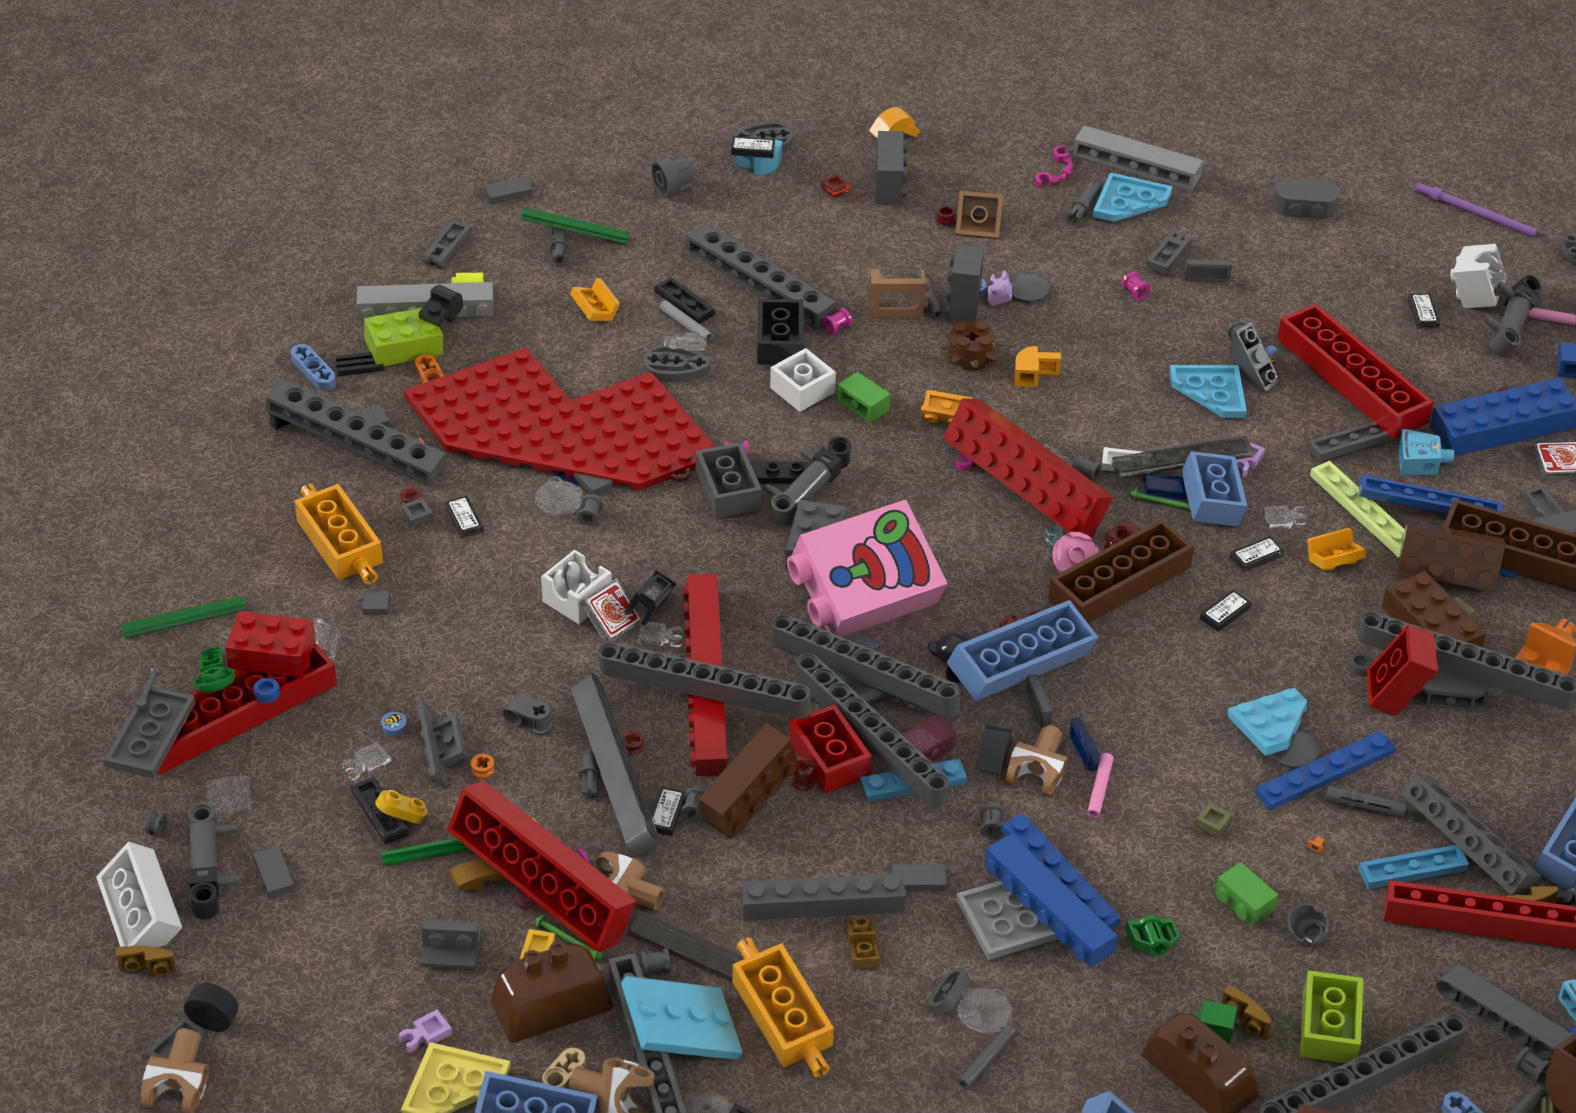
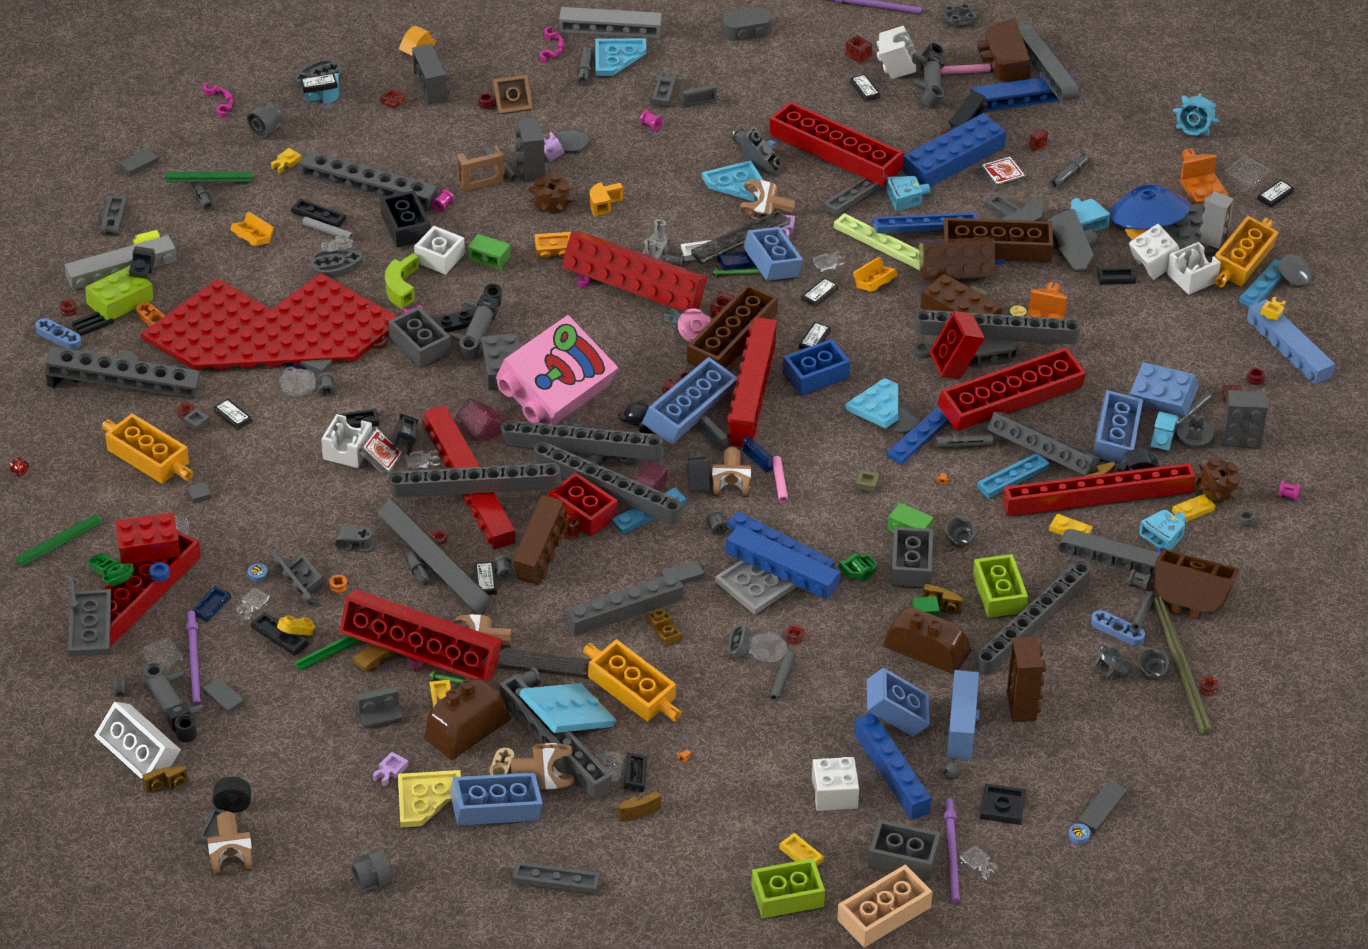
camera: 20 degrees left, 0 degrees up
(184, 513) = (19, 466): none -> clear red bush
(278, 775) = (192, 630): none -> medium lavender bar
(319, 747) = (211, 603): none -> clear blue tile
(336, 338) = (67, 311): none -> clear red bush
(608, 563) = (358, 415): none -> black tile
(633, 149) = (222, 107): none -> dark pink piece
(677, 227) = (287, 158): none -> yellow plate
(736, 397) = (397, 289): none -> lime arch
(754, 603) = (480, 419): none -> clear pink slope
(1029, 1011) = (791, 638): none -> clear red bush
(1072, 441) = (658, 242): none -> light grey piece
(1115, 647) = (752, 381): none -> red brick
(1208, 649) = (816, 367): none -> blue brick
(1227, 942) = (912, 557): none -> dark grey brick
(1236, 421) = (767, 200): none -> medium nougat connector
(1434, 261) = (858, 49): none -> clear red brick
(1455, 748) = (1011, 388): none -> red brick
(1456, 953) = (1062, 523): none -> yellow plate
(1508, 646) = (1018, 310): none -> light yellow tile
(1547, 367) = (972, 107): none -> black window

